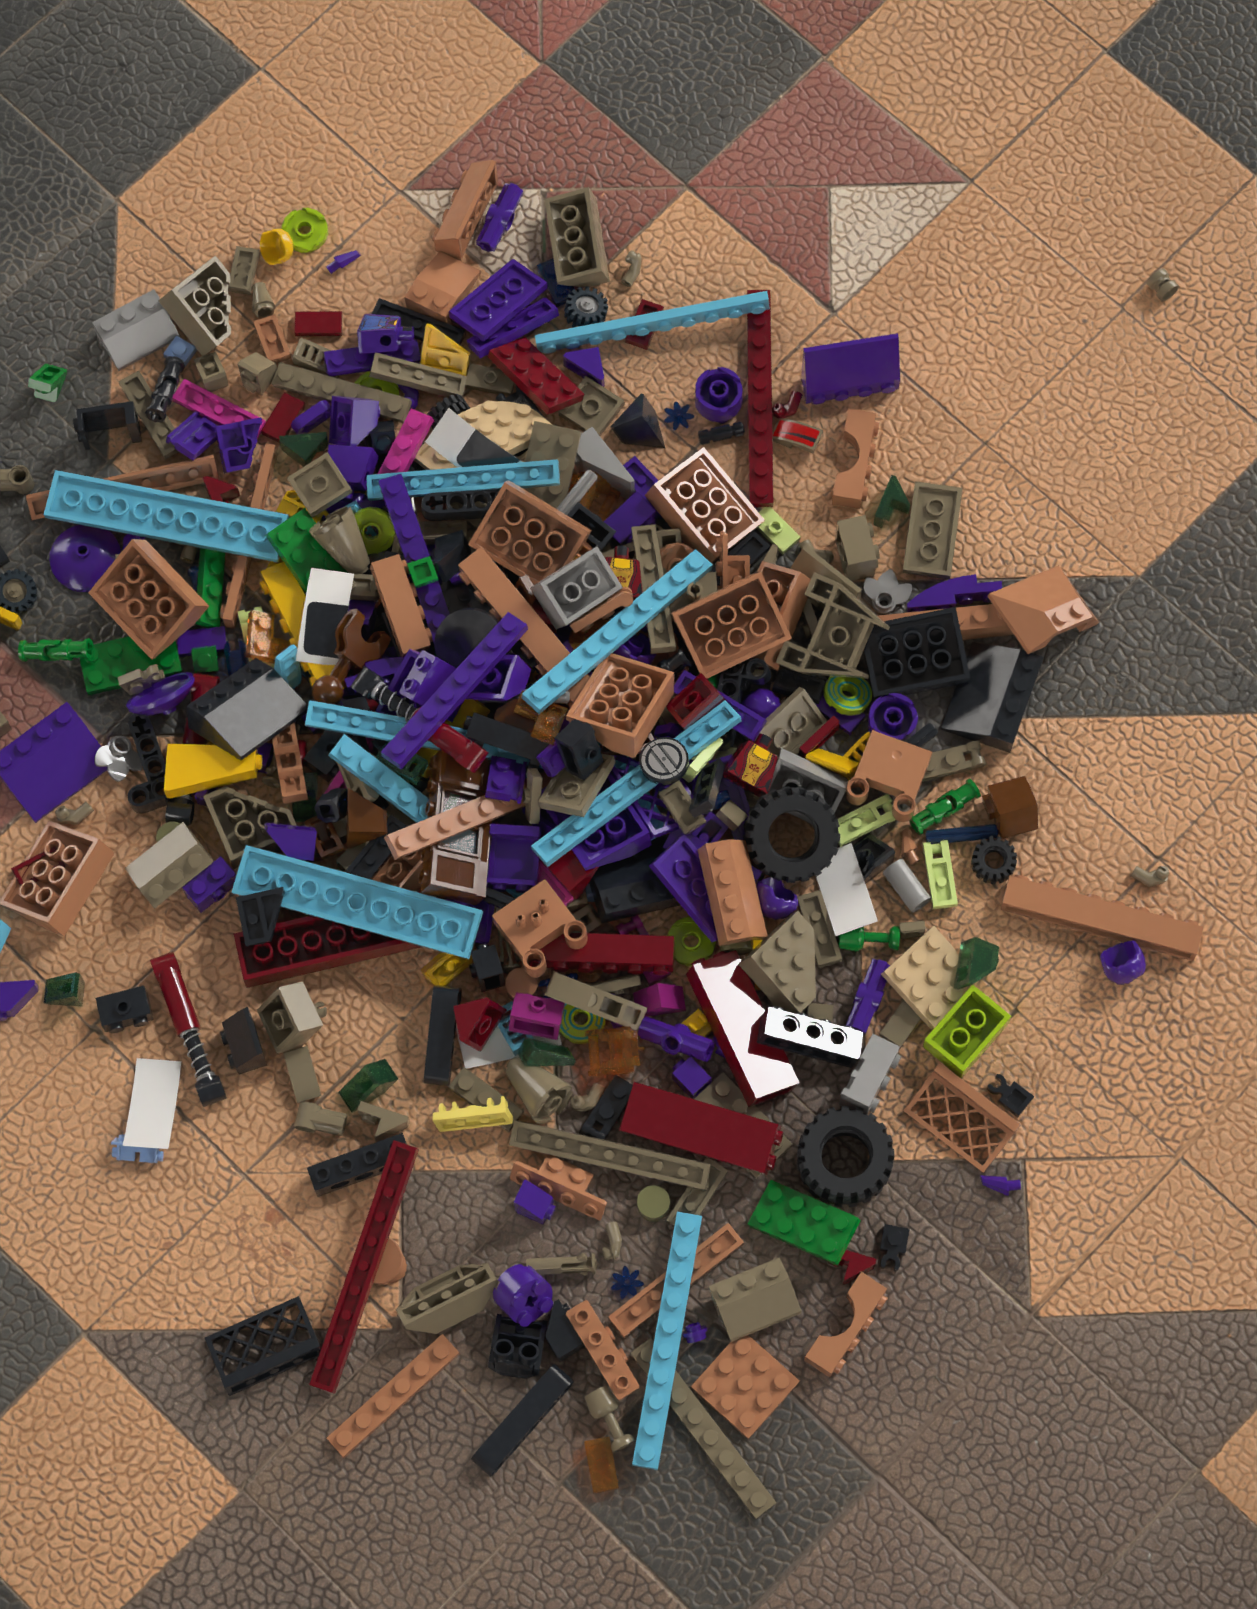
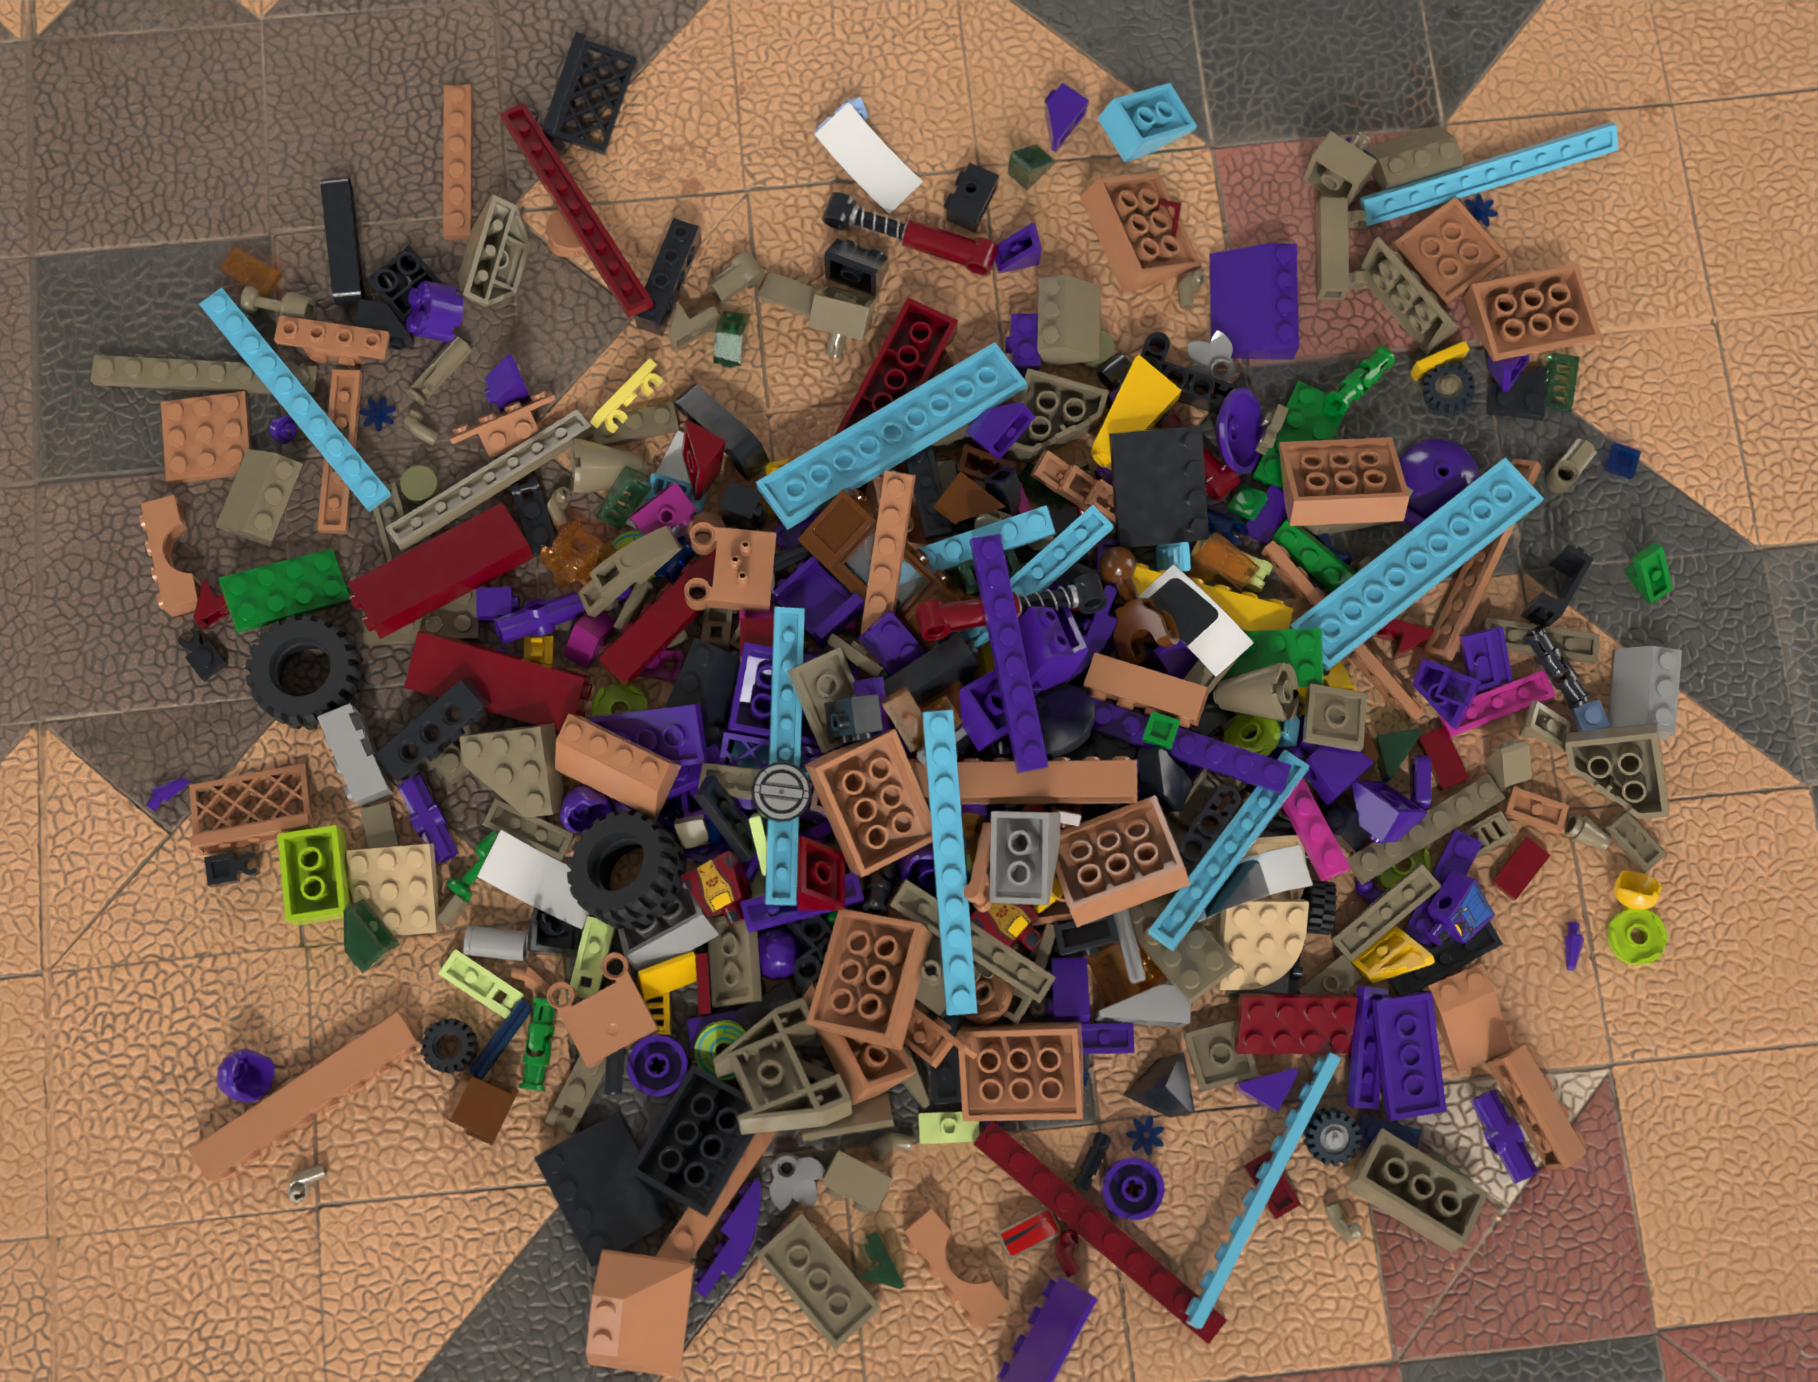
camera: 125 degrees right, 5 degrees up
(139, 944) = (1019, 250): none -> dark purple slope
(259, 915) = (951, 346): black wing -> none

